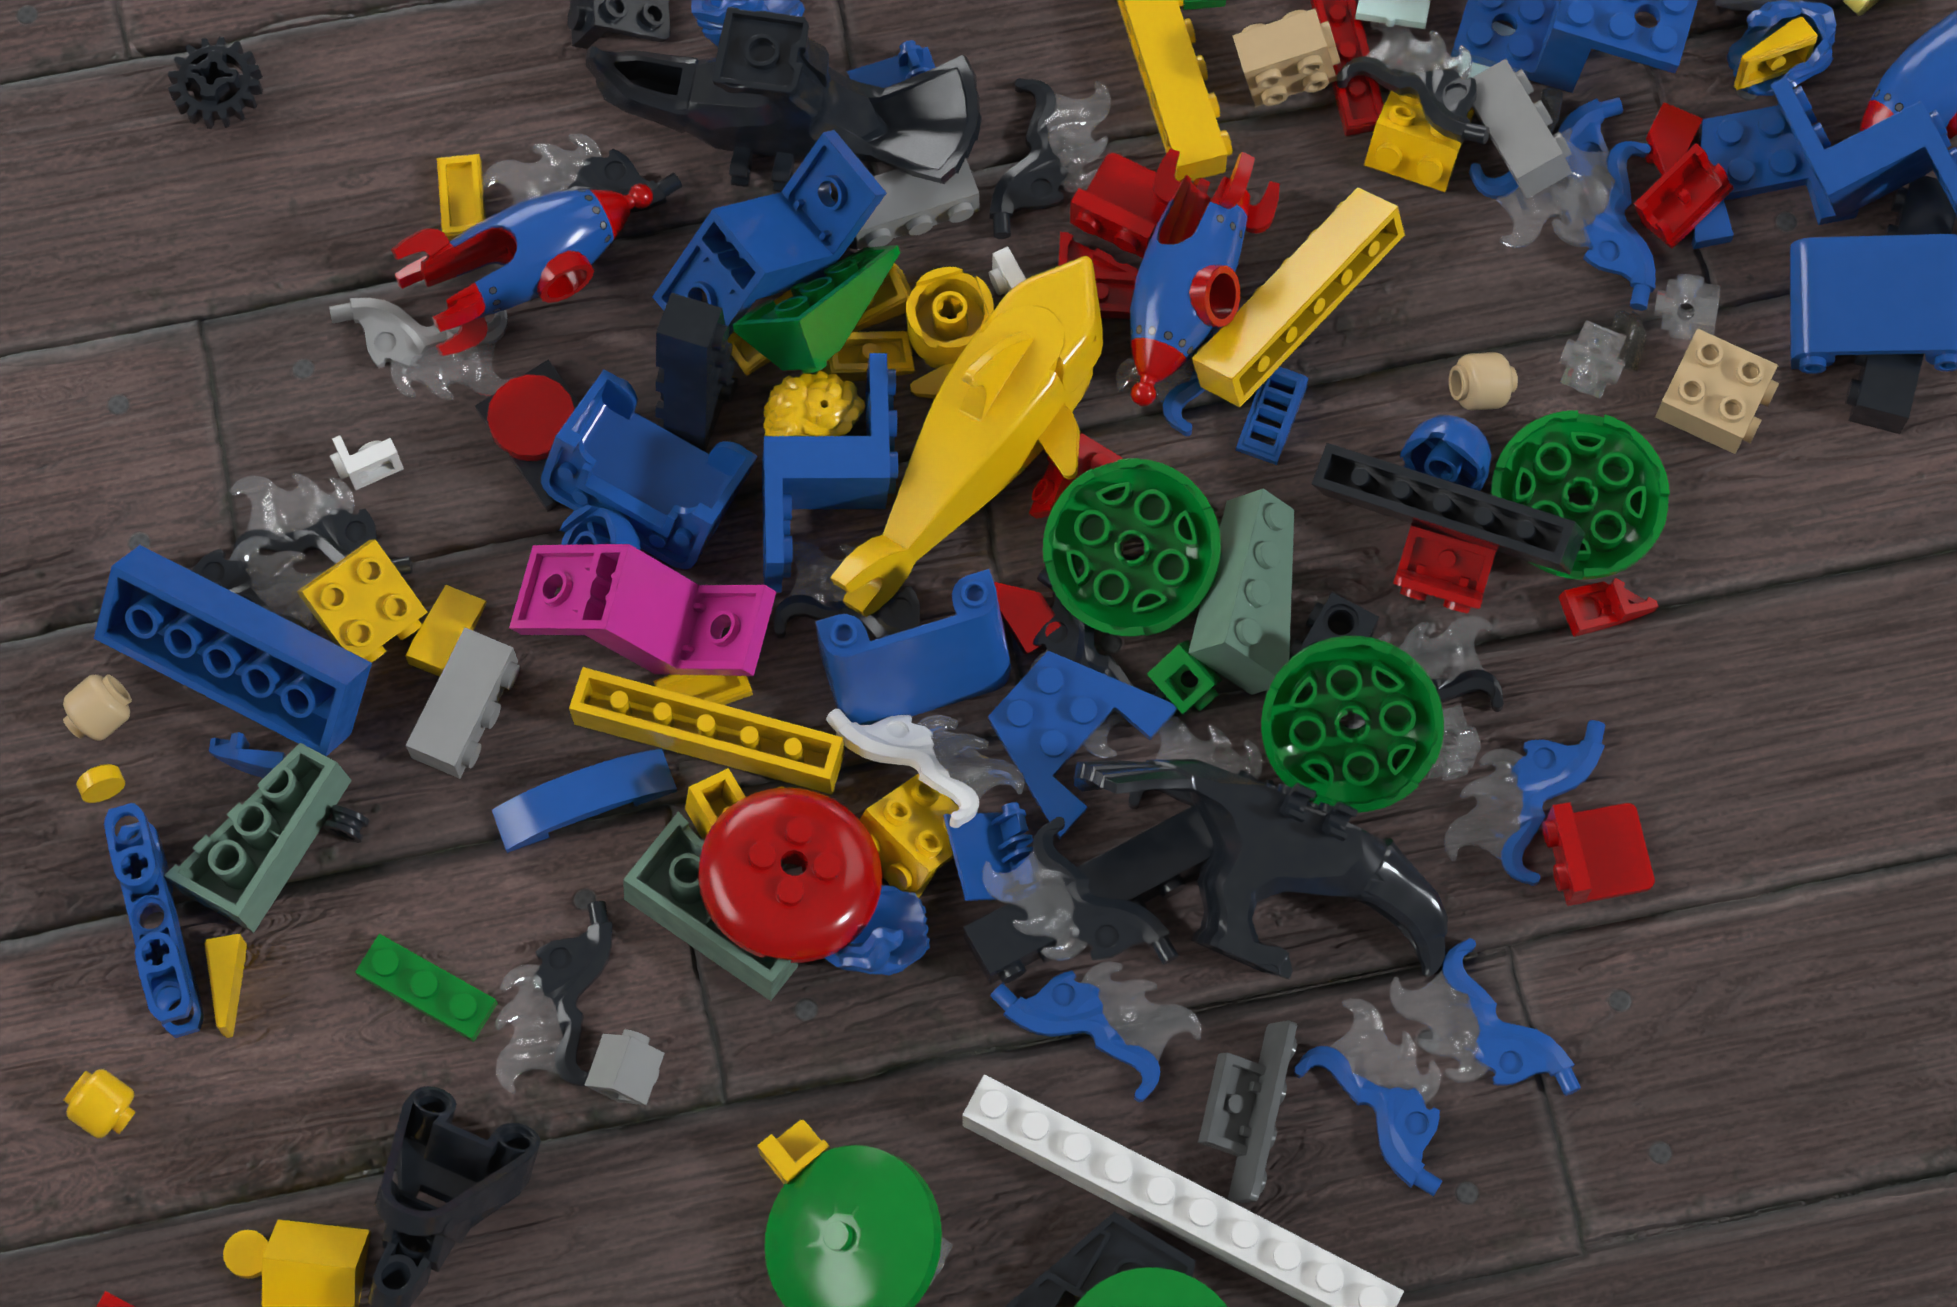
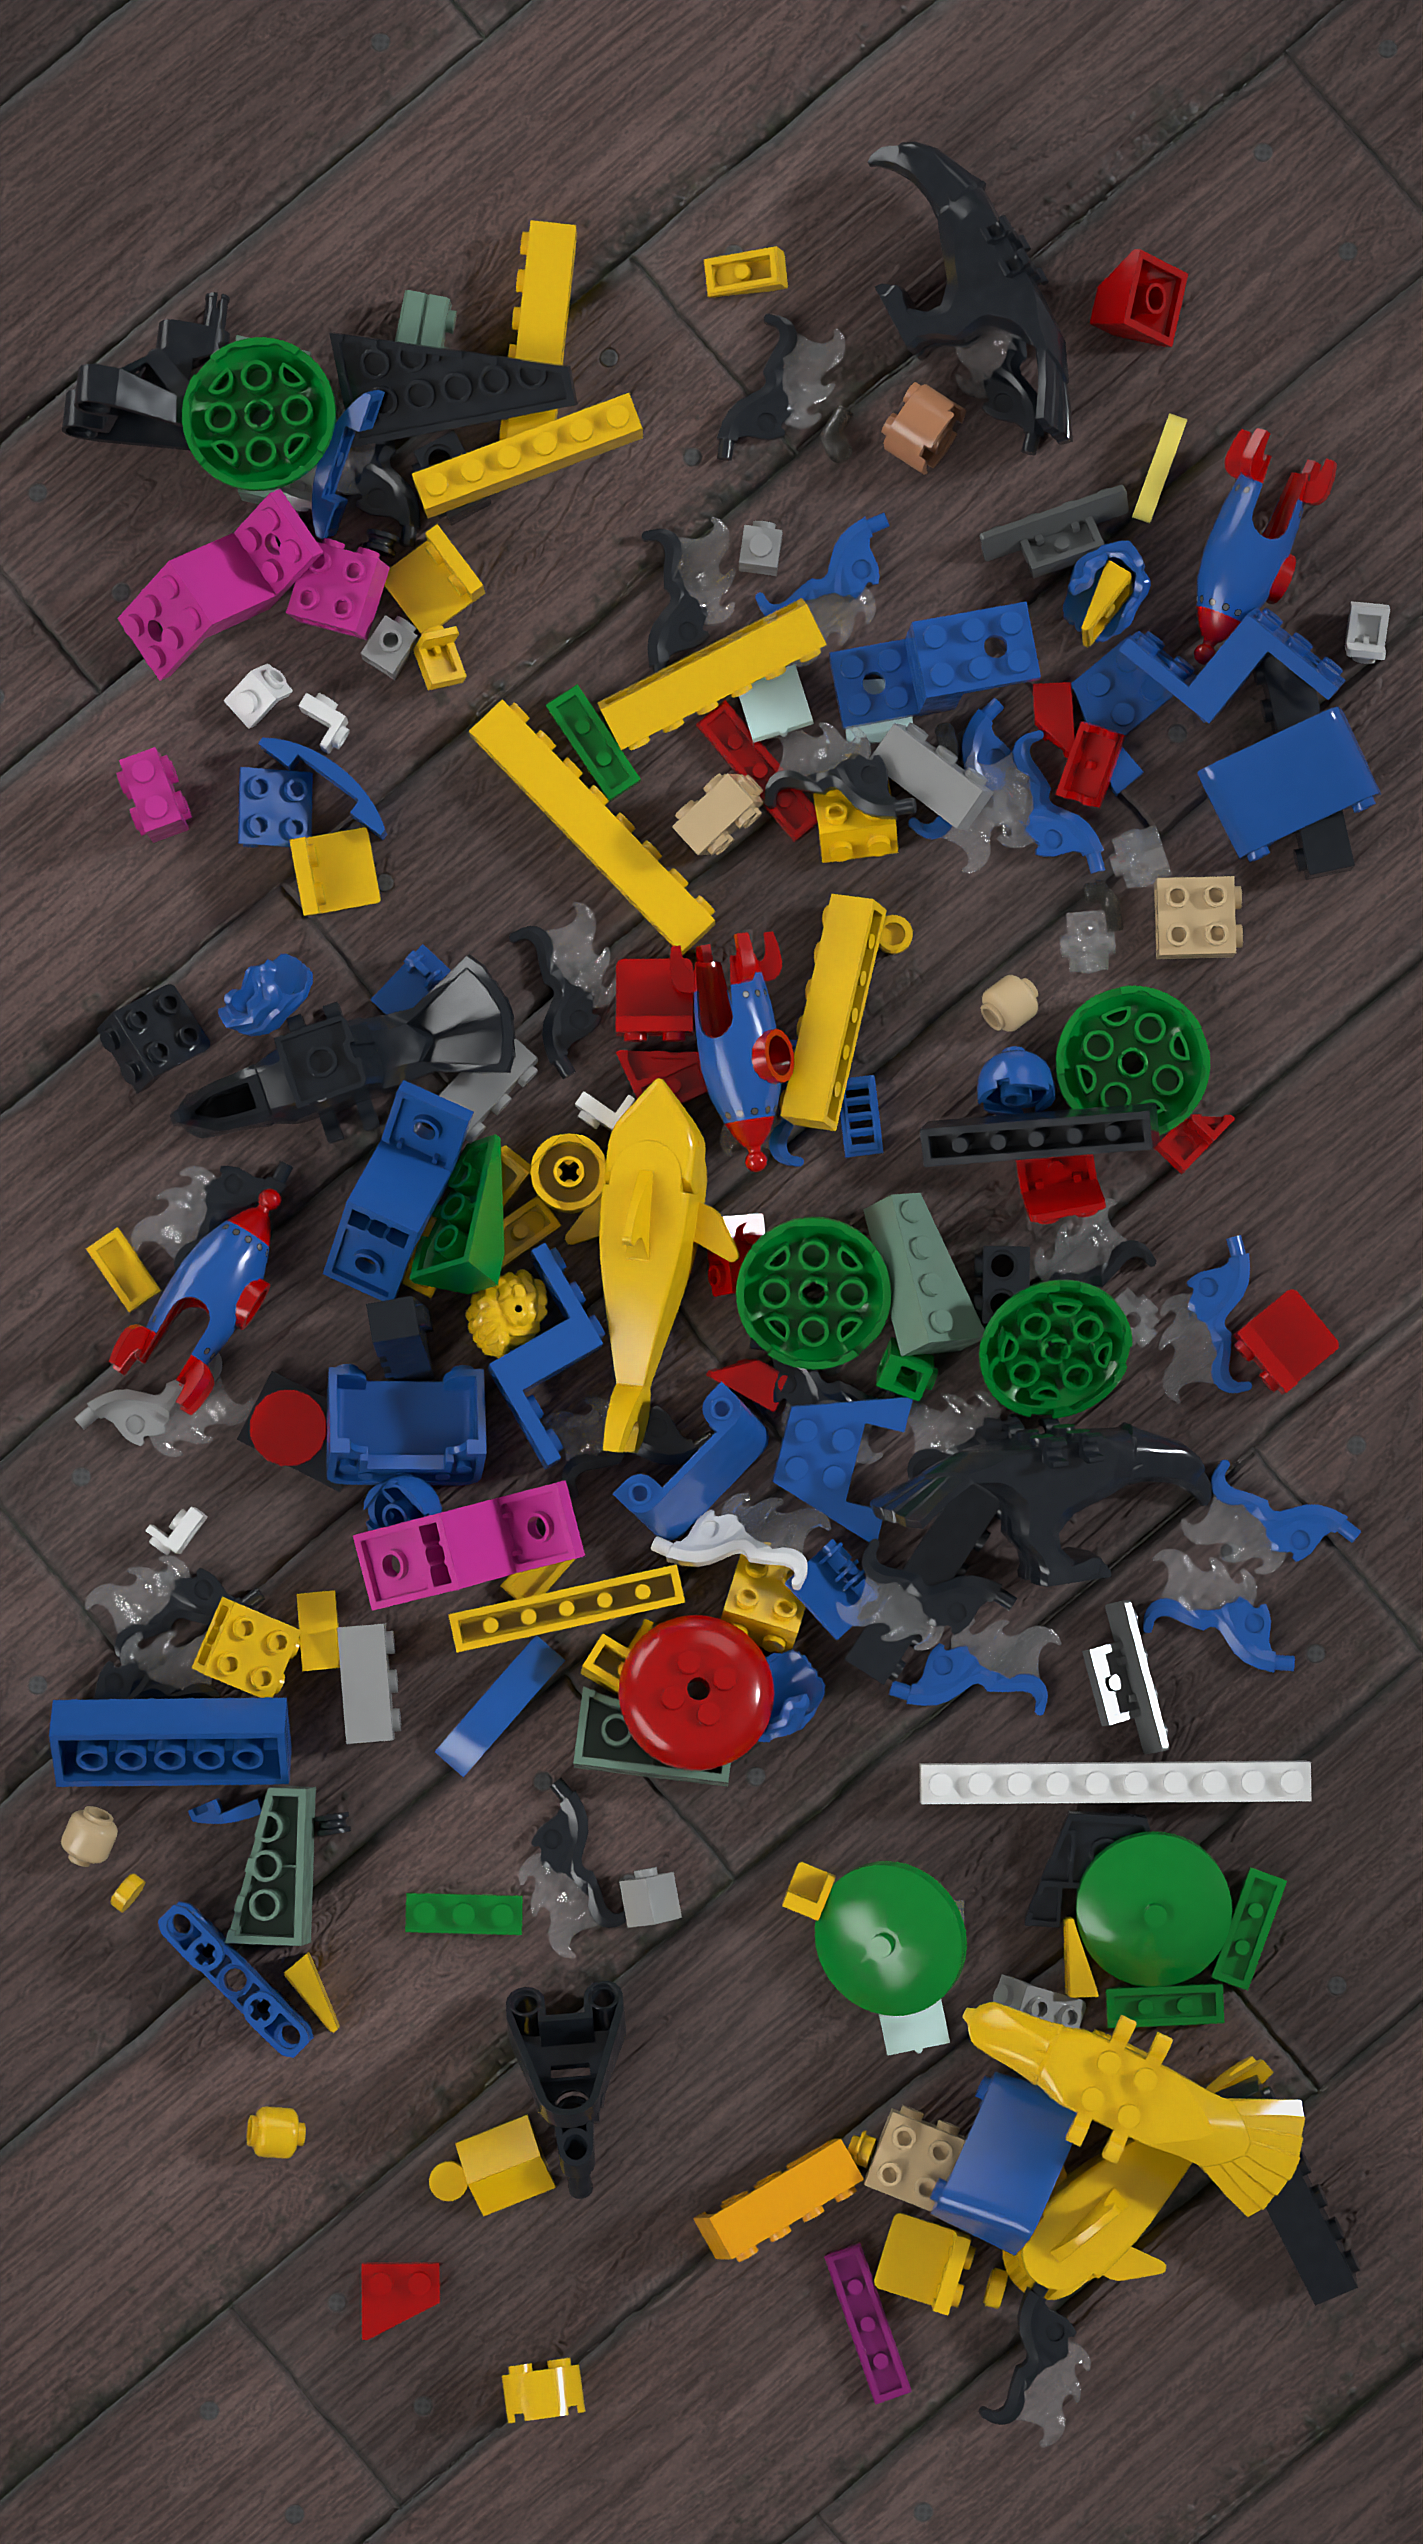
camera: 25 degrees left, 15 degrees up
(1400, 266) = (895, 935): none -> yellow tile

